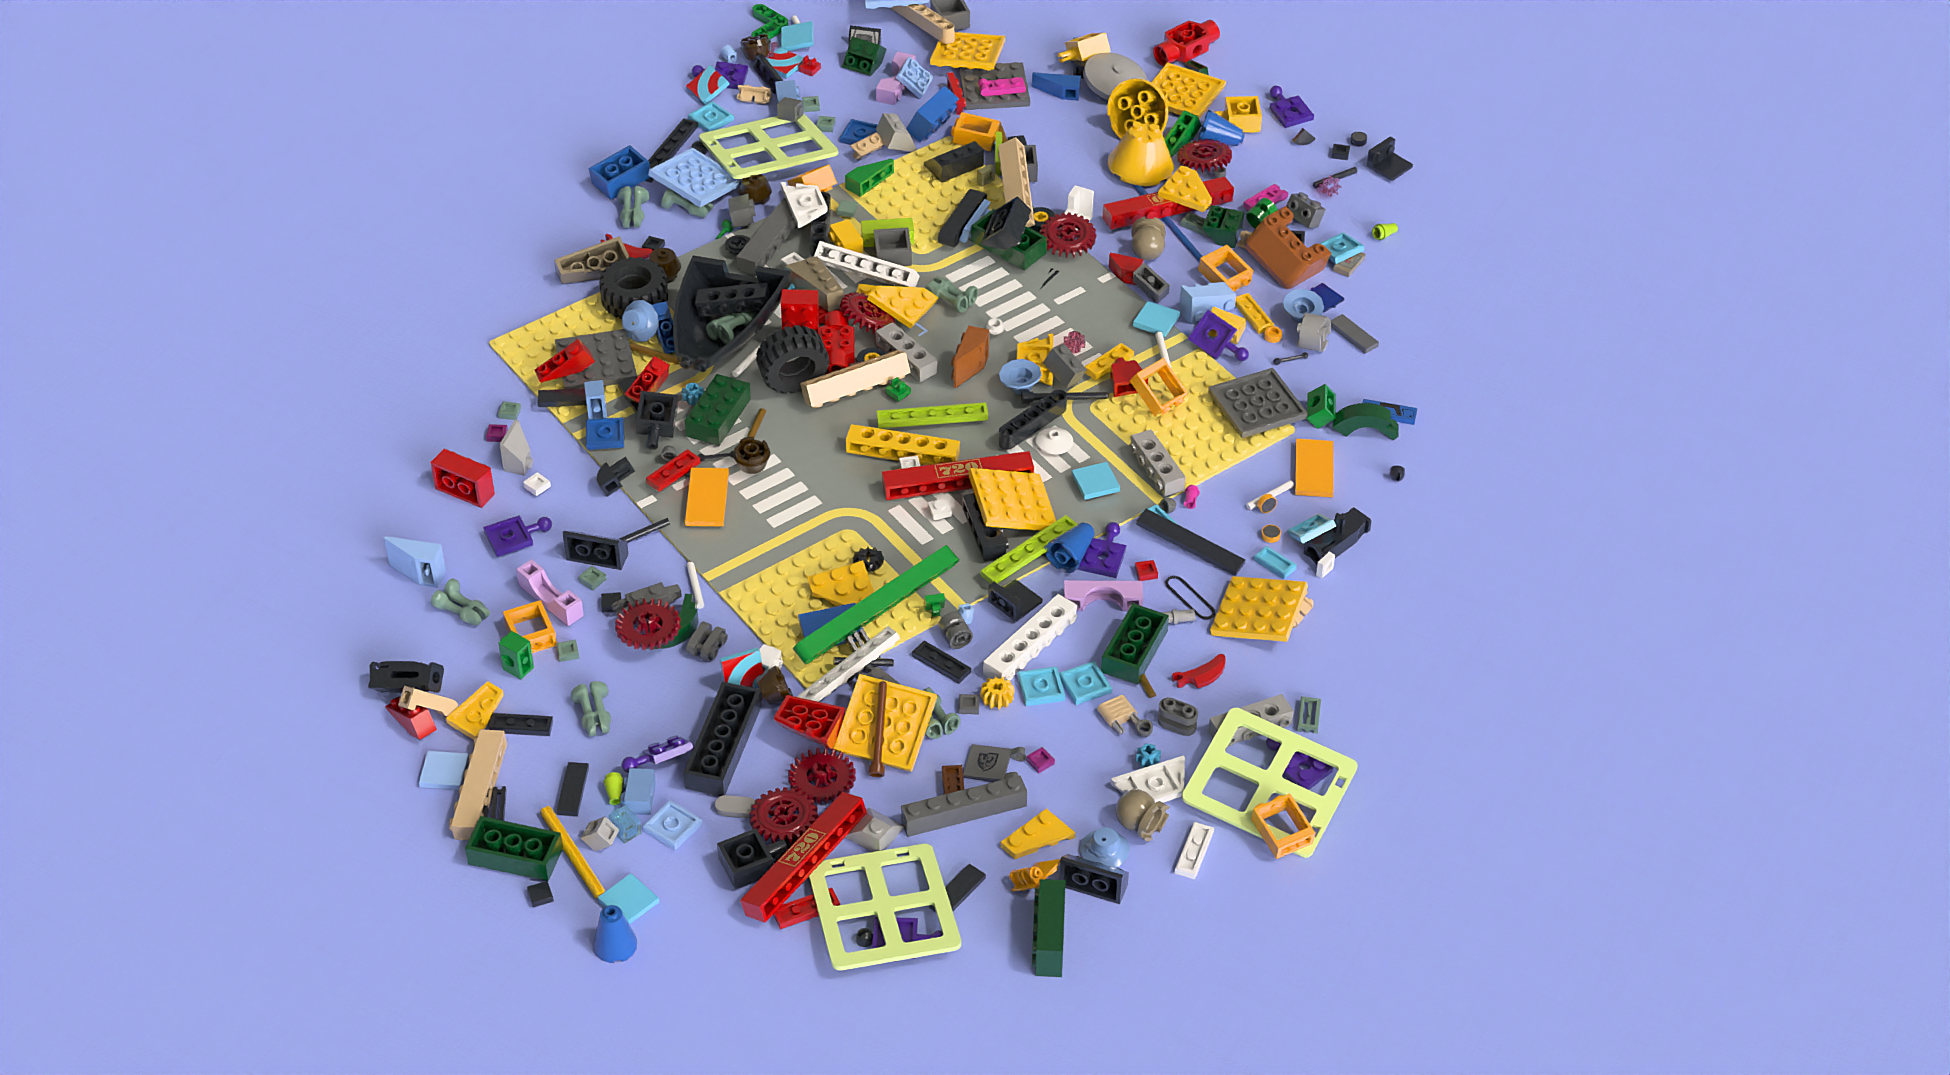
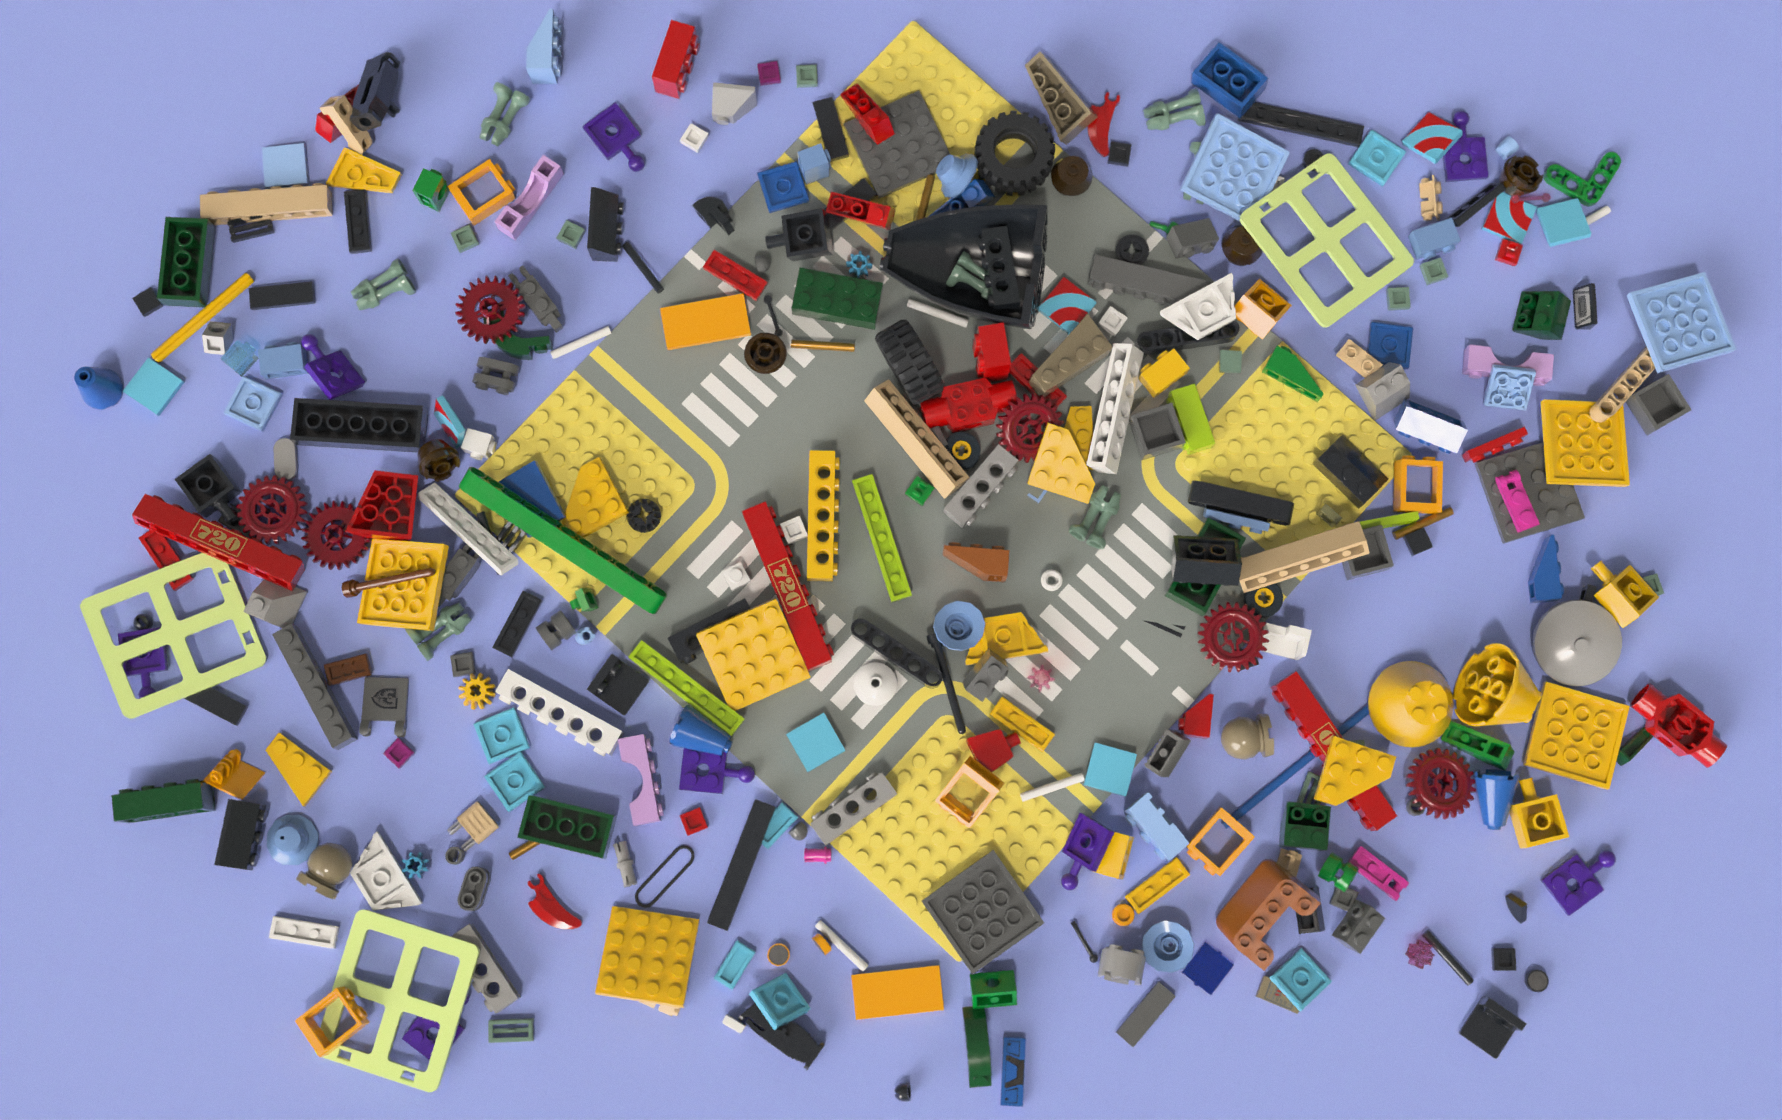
camera: 75 degrees right, 35 degrees up
(608, 599) = (539, 263): black tile -> none
(614, 786) = (285, 334): lime cone -> none
(790, 109) = (1401, 249): dark grey brick -> none
(1382, 231) = (1349, 1033): lime cone -> none

